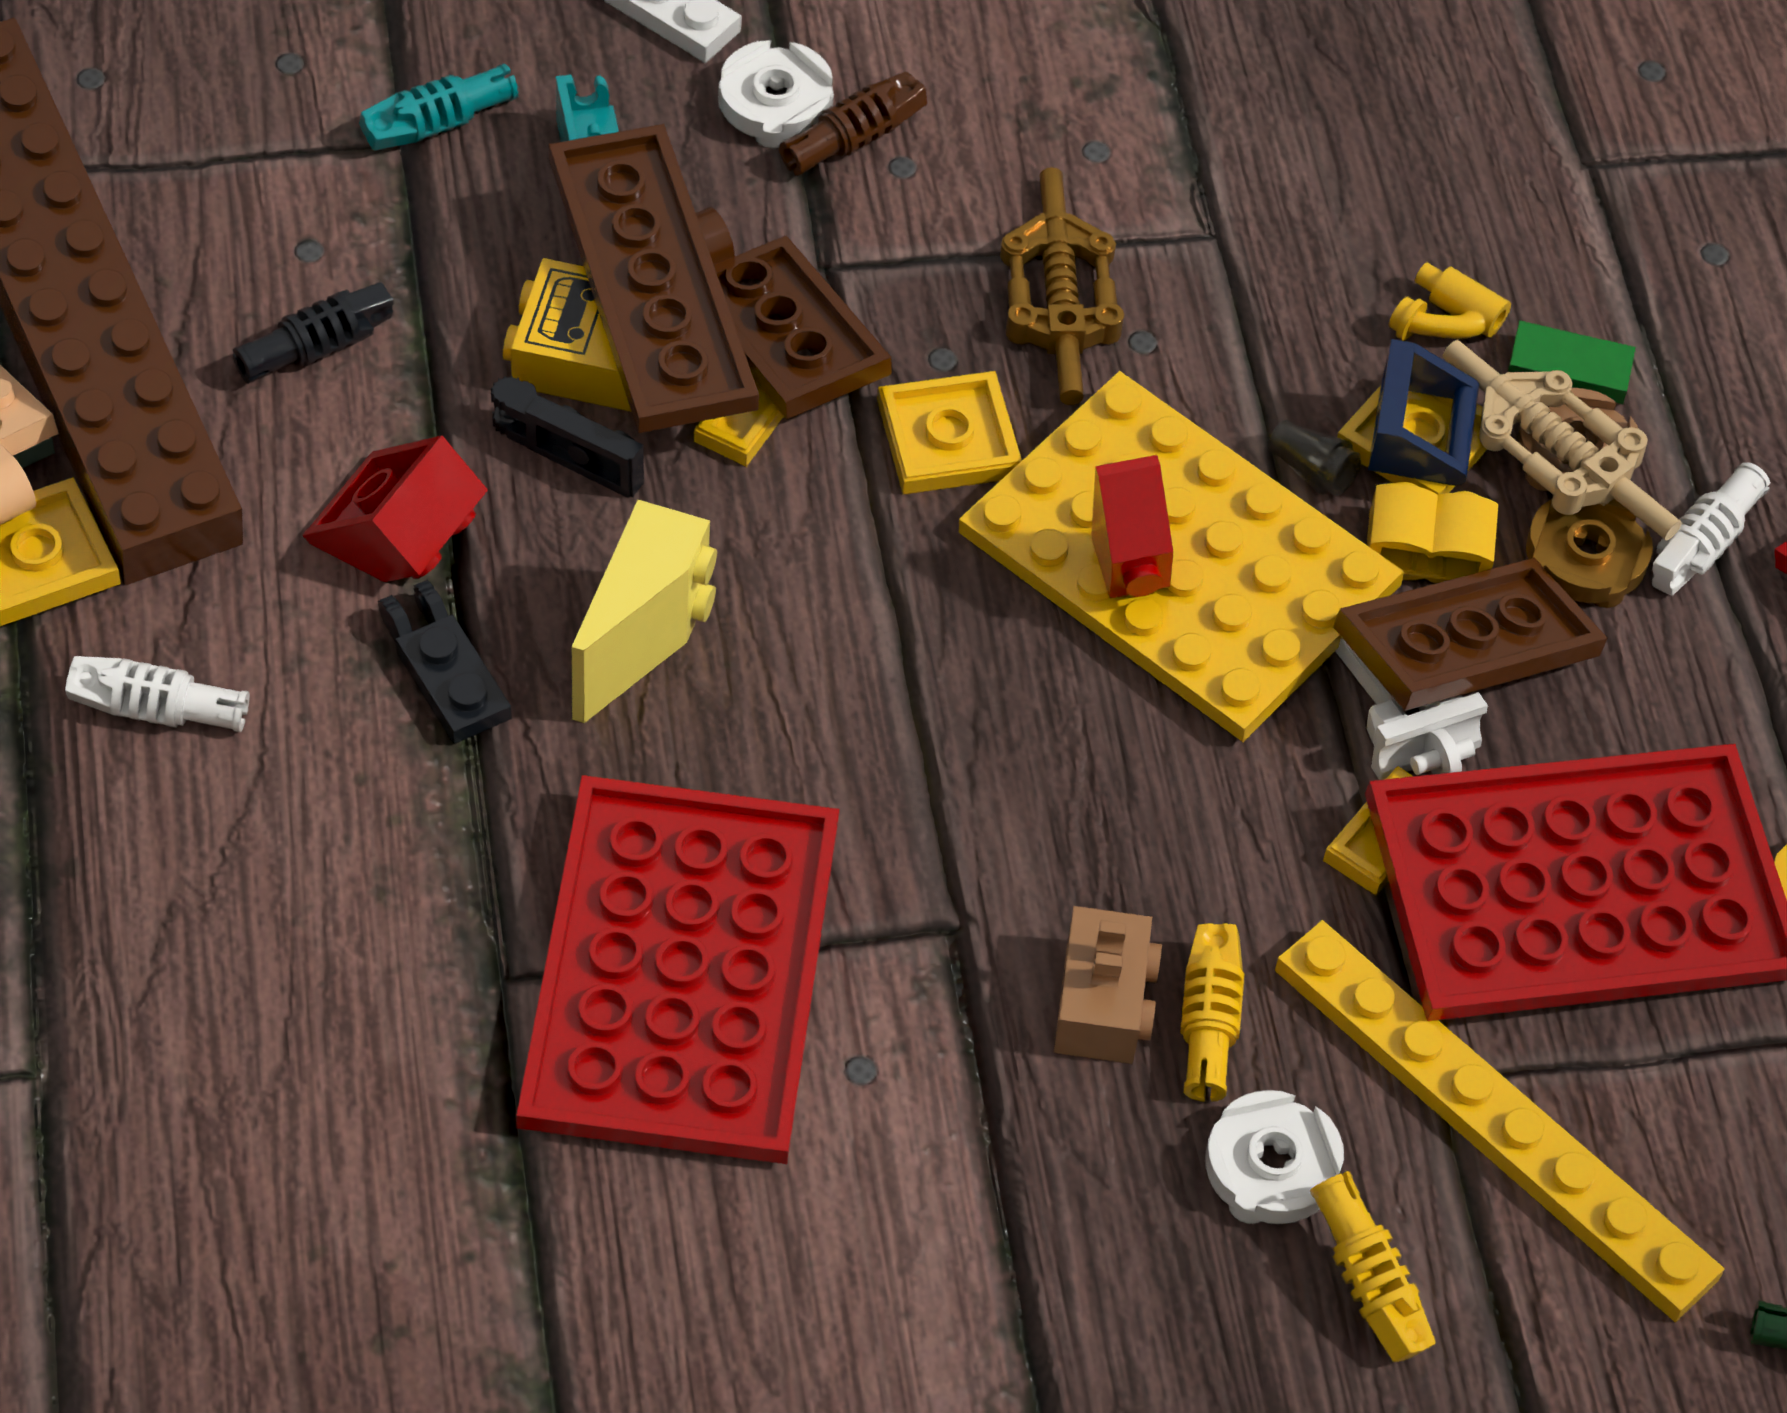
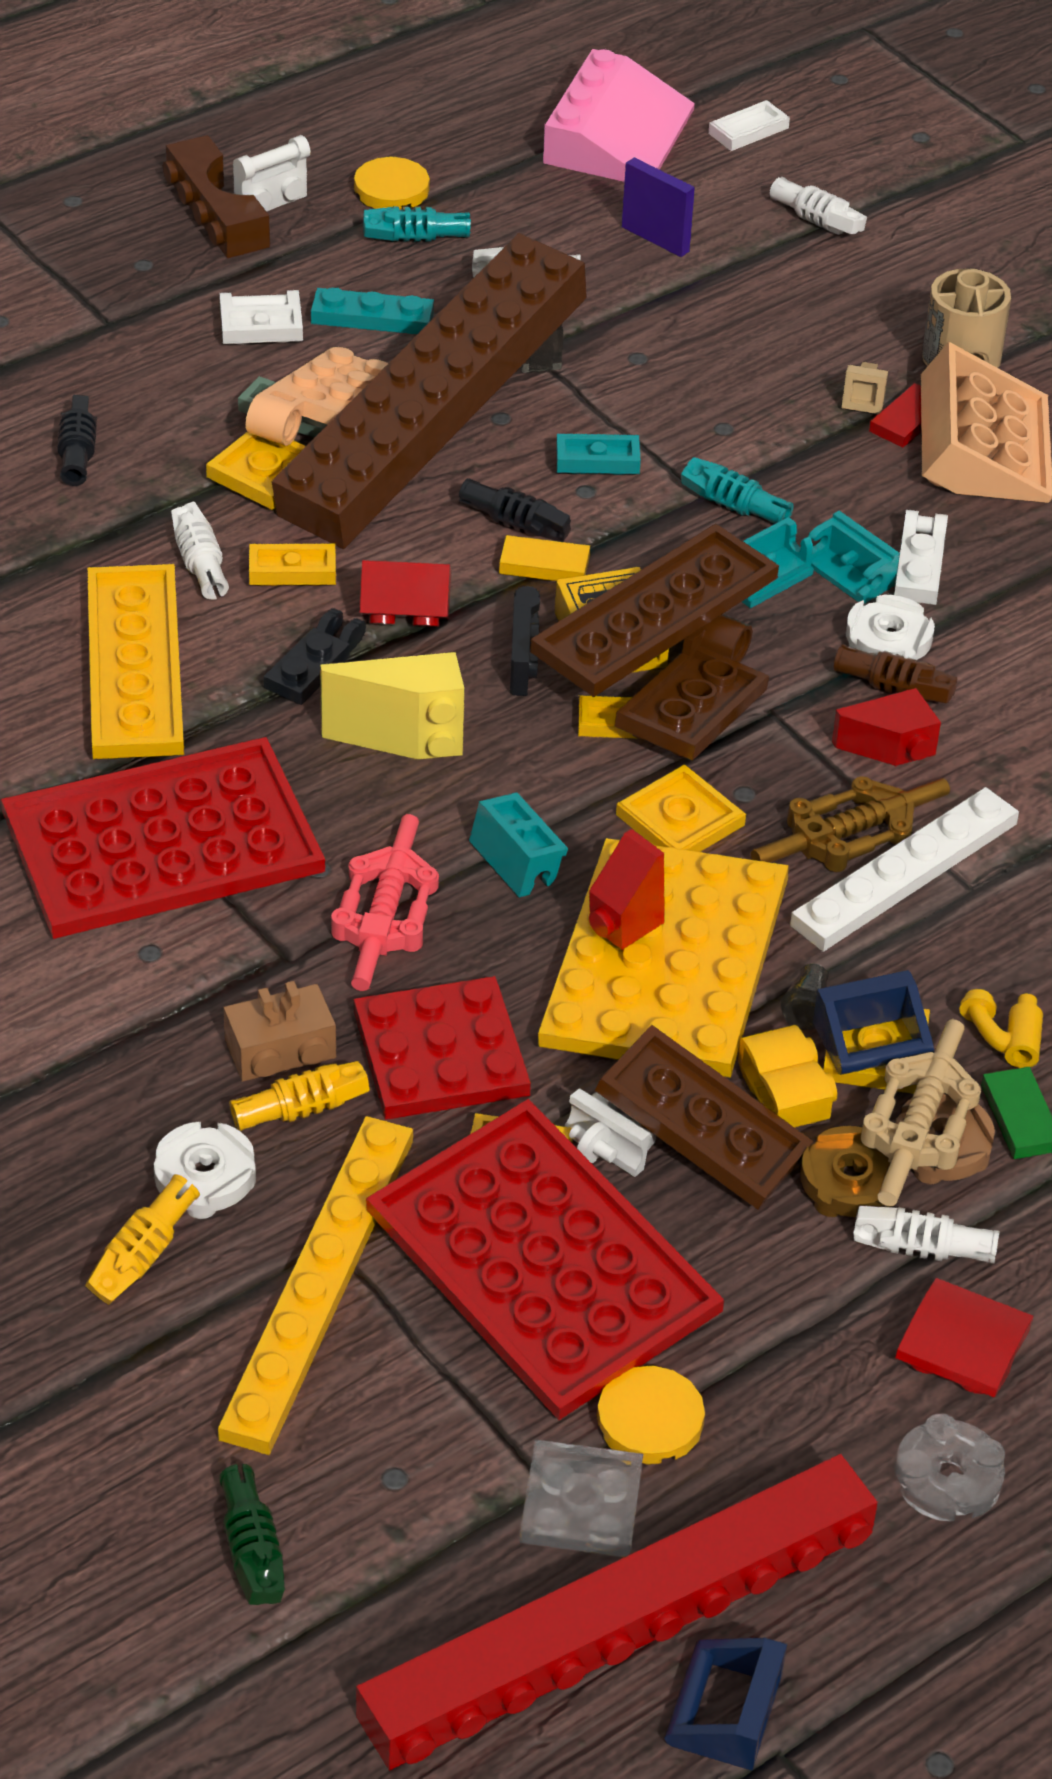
camera: 65 degrees right, 10 degrees down
(256, 607) = (292, 564): none -> yellow plate
(267, 201) = (598, 453): none -> teal plate
(327, 858) = (134, 662): none -> yellow plate
(420, 348) = (543, 558): none -> yellow tile
(637, 56) = (853, 558): none -> teal hinge
(924, 606) = (516, 842): none -> teal hinge
(949, 170) = (888, 728): none -> red slope
(972, 818) = (378, 931): none -> coral bar
(1158, 276) = (903, 869): none -> white plate
(1195, 836) = (441, 1047): none -> red plate

